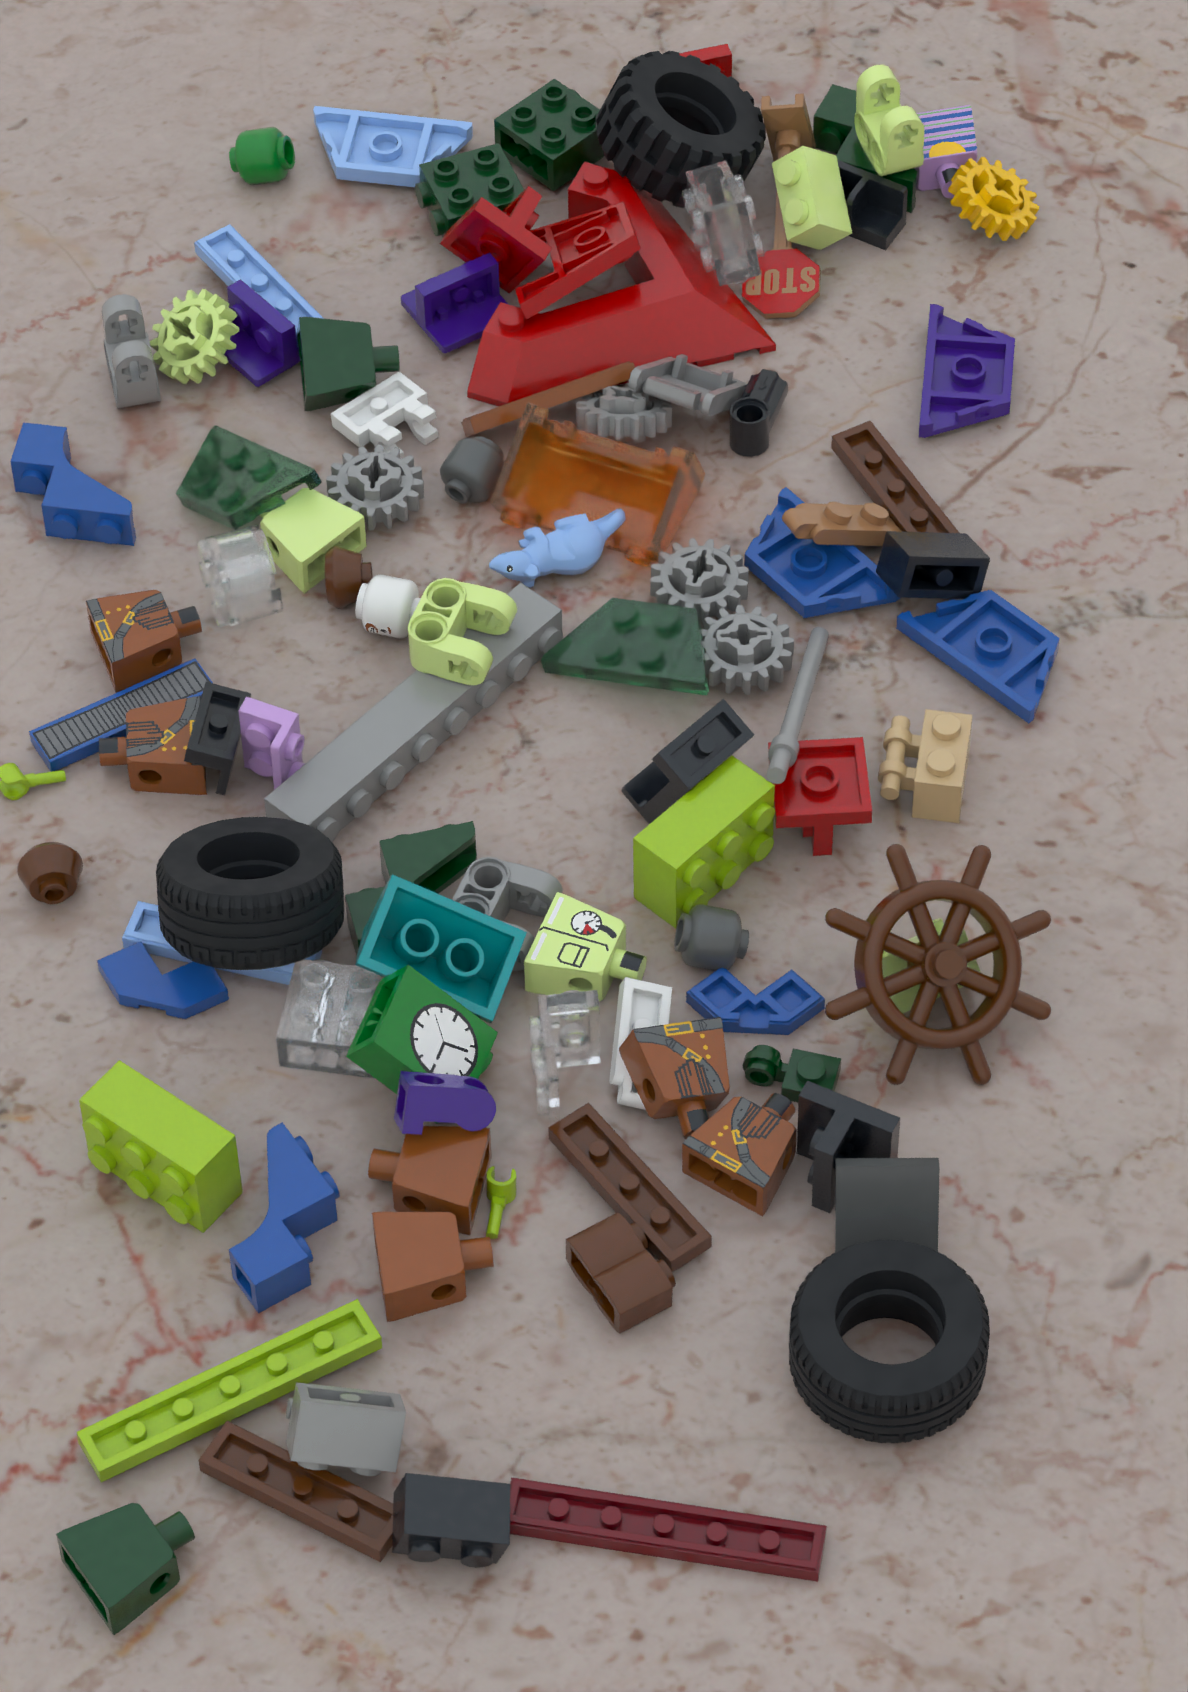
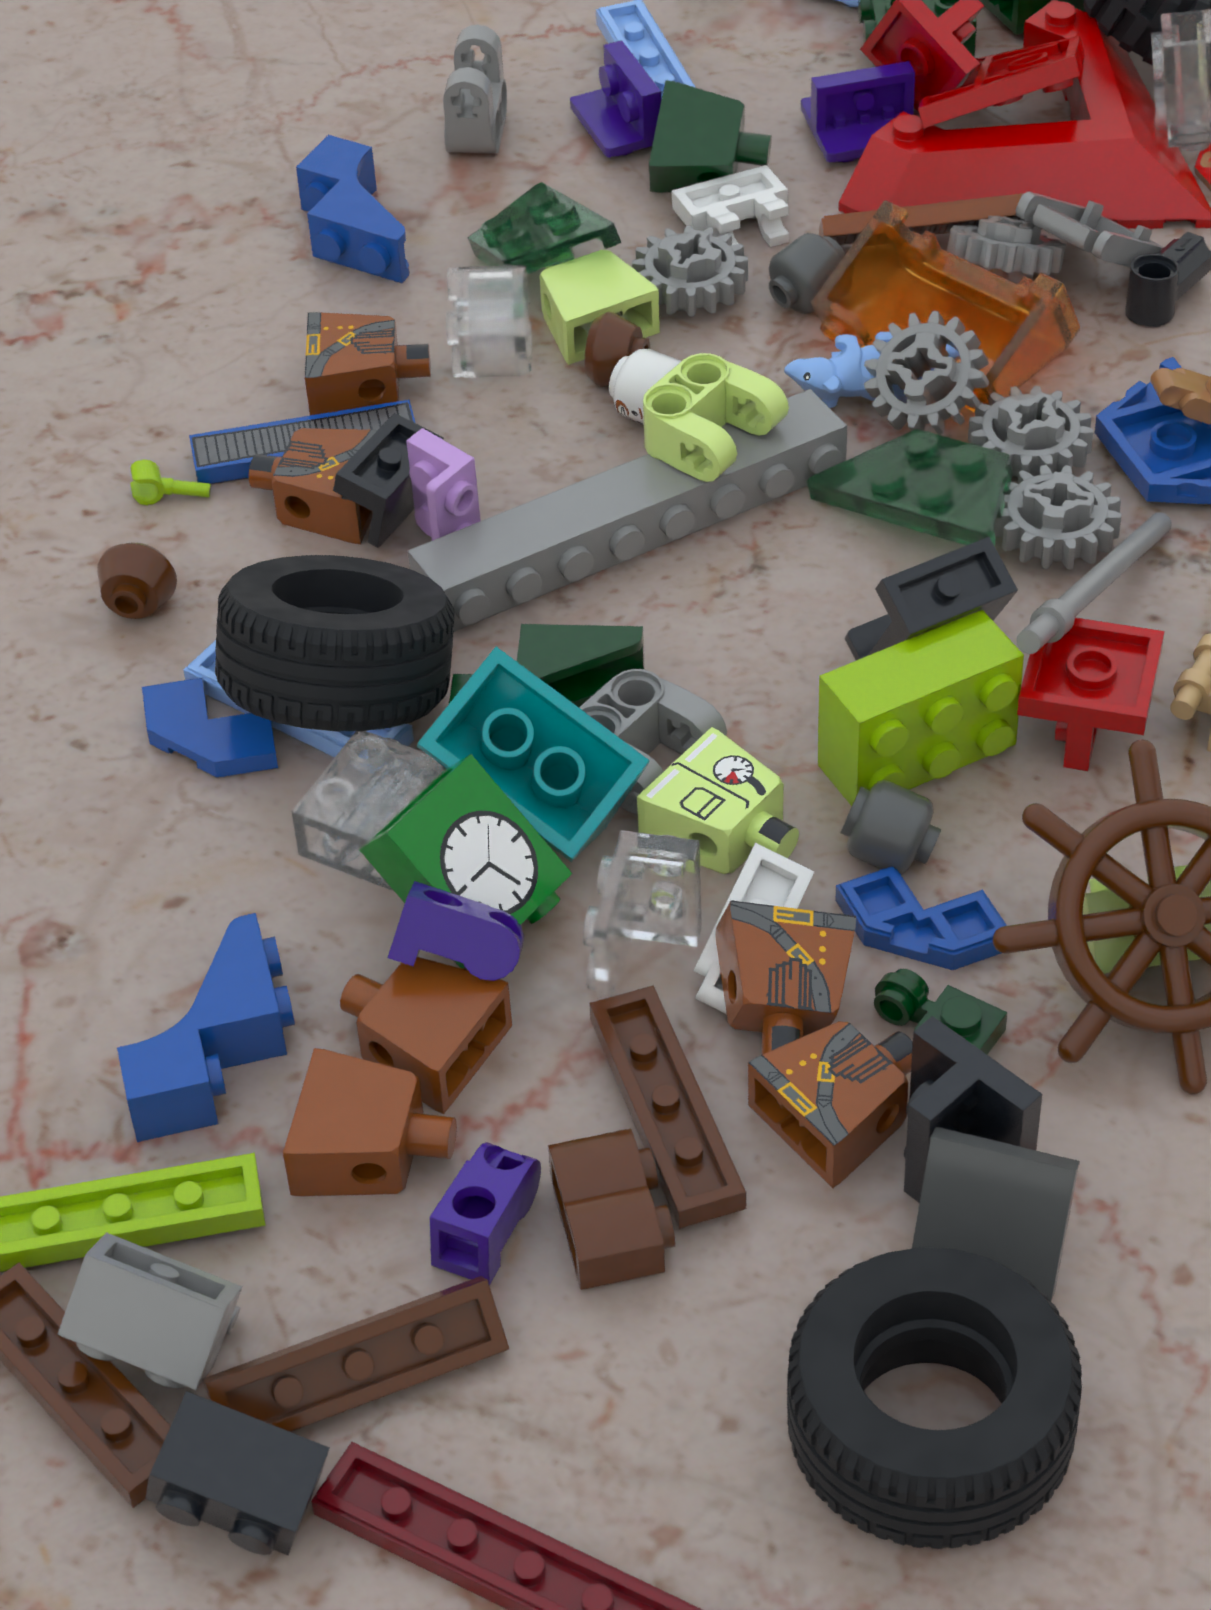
camera: 20 degrees right, 5 degrees down
(161, 1147) = (95, 906): lime brick -> none
(199, 316) = (553, 92): yellowish green gear -> none
(499, 1194) = (499, 1073): lime hand -> none
(500, 1418) = (365, 1358): none -> reddish brown plate
(534, 1298) = (482, 1211): none -> dark purple leg
(609, 570) = (912, 355): none -> light grey gear

